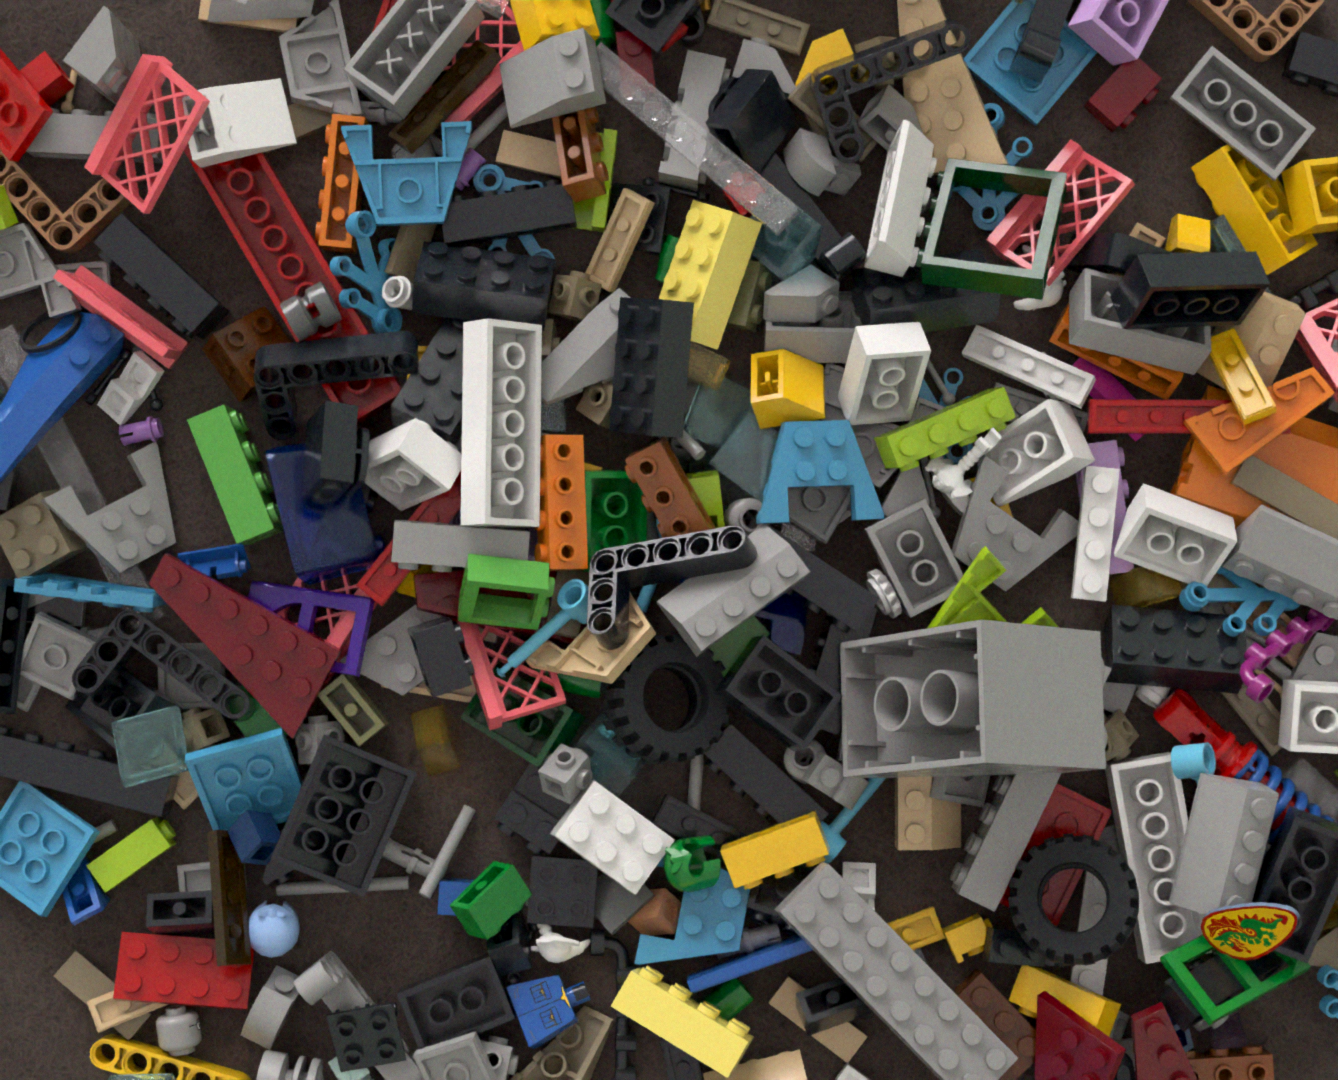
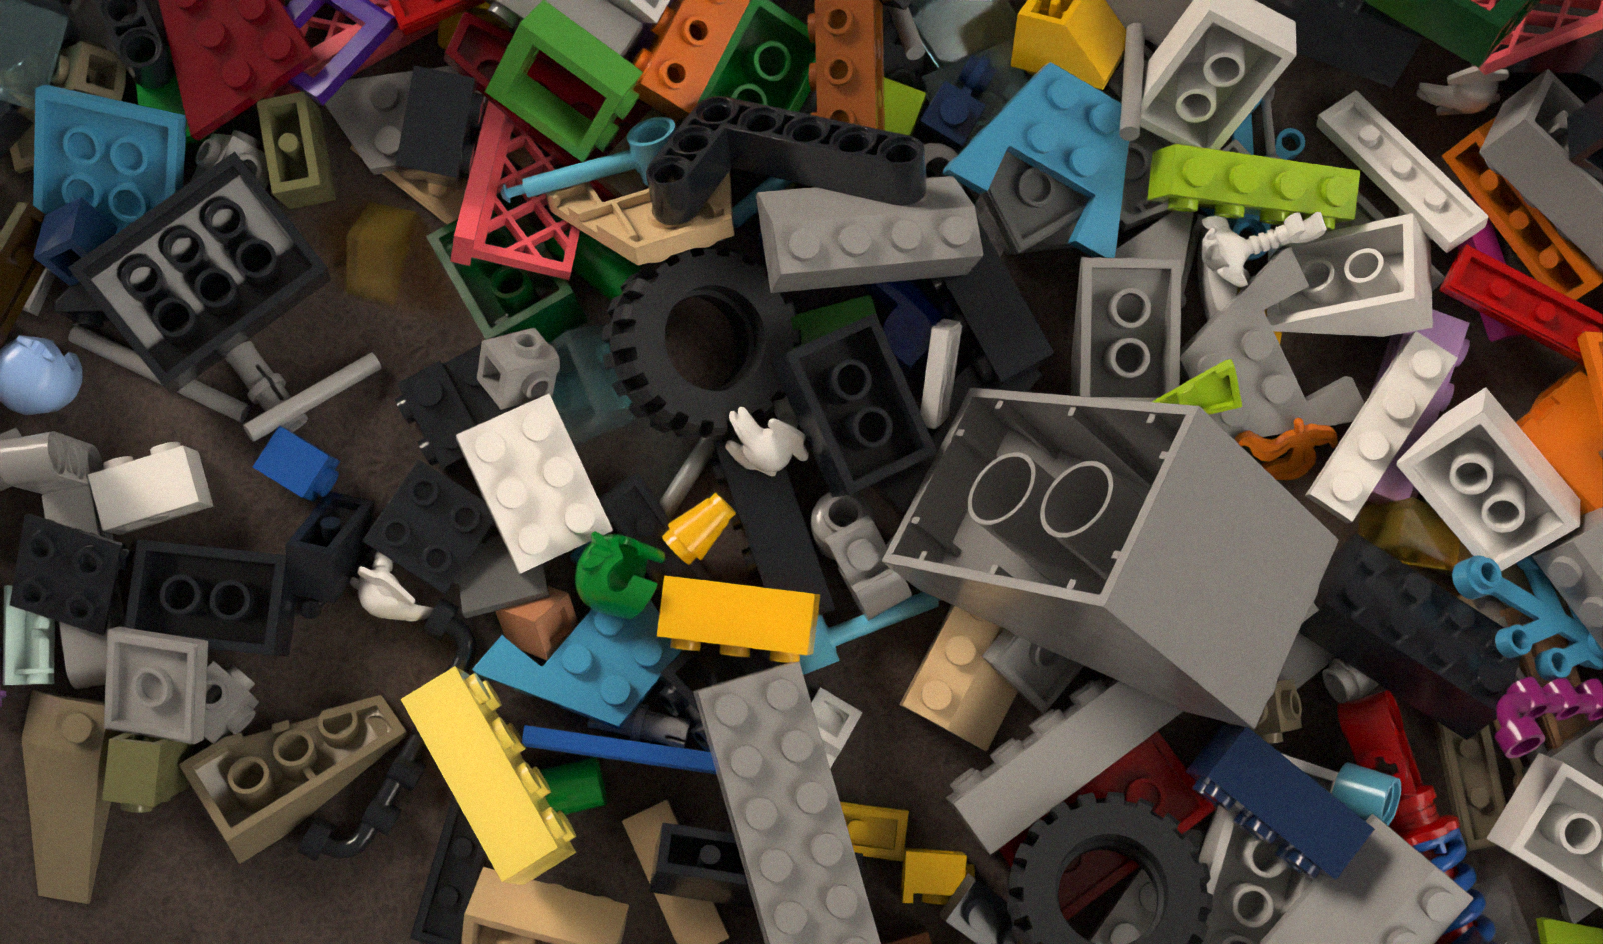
camera: 20 degrees right, 5 degrees down
(380, 958) = (149, 489): none -> white brick
(491, 900) = (329, 484): green brick -> none
(546, 1007) = (325, 667): blue torso -> none
(723, 809) = (698, 528): none -> yellow cone
(739, 475) = (954, 110): none -> dark blue plate
(741, 742) = (767, 448): none -> white piece
(818, 645) = (940, 372): none -> white tile
(839, 401) = (1132, 82): none -> light grey bar
(880, 587) = (1060, 372): white gear -> none
(1053, 566) = (1298, 441): none -> orange piece
(1143, 797) = (1278, 802): none -> dark blue brick

